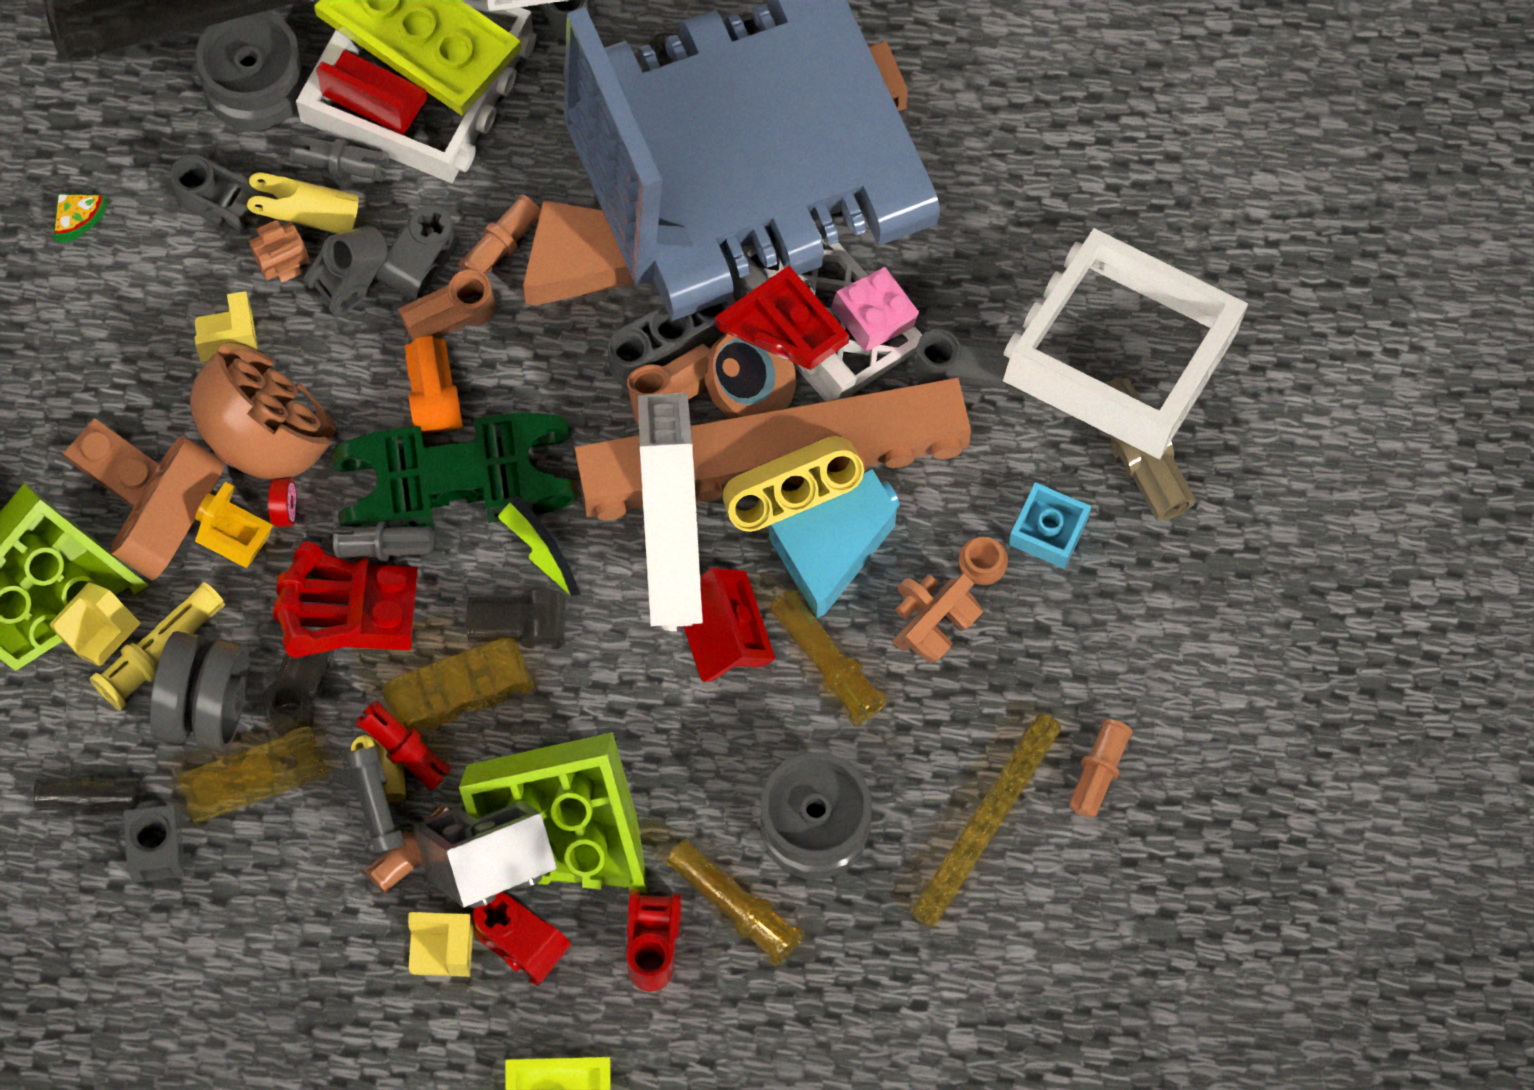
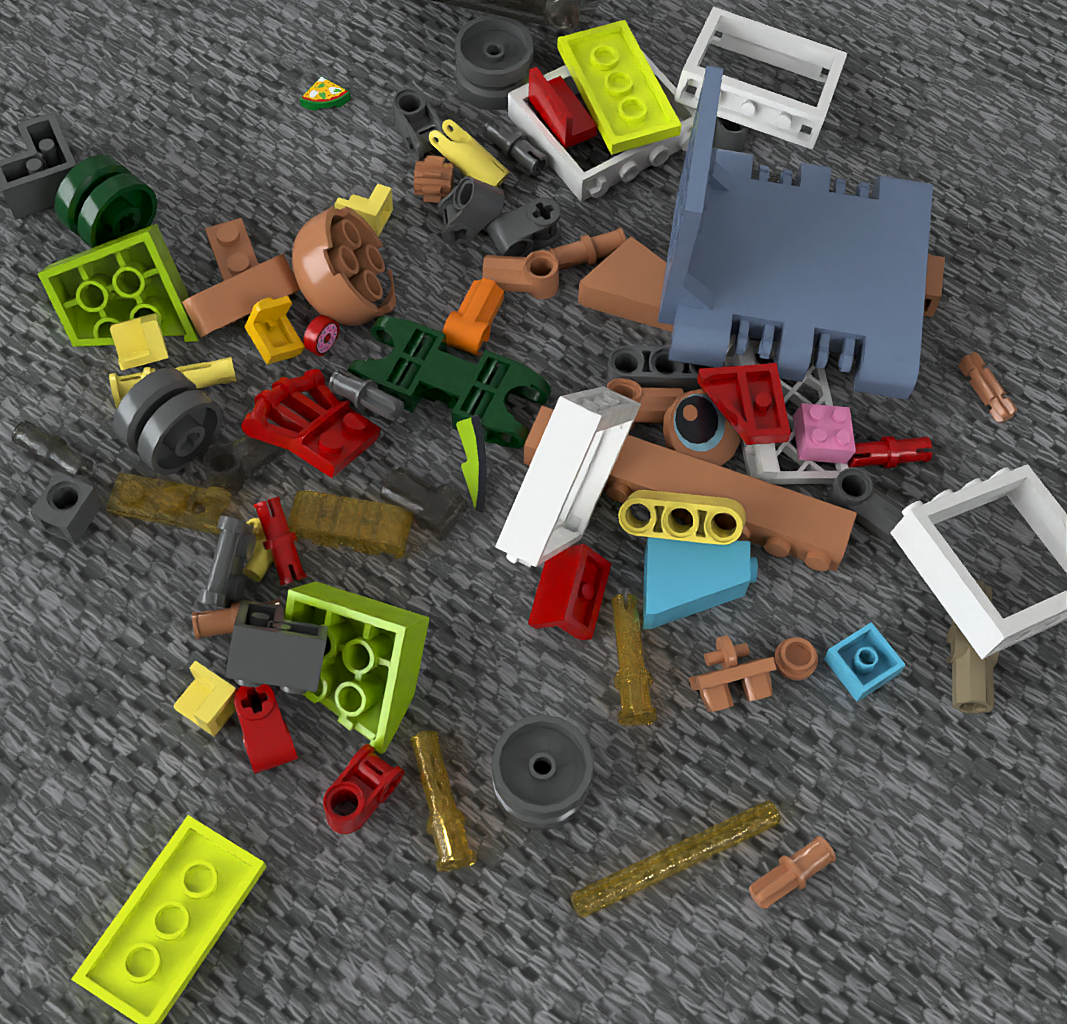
camera: 30 degrees right, 5 degrees down
(951, 288) = (891, 452): none -> red pin
(1006, 159) = (987, 387): none -> nougat axle

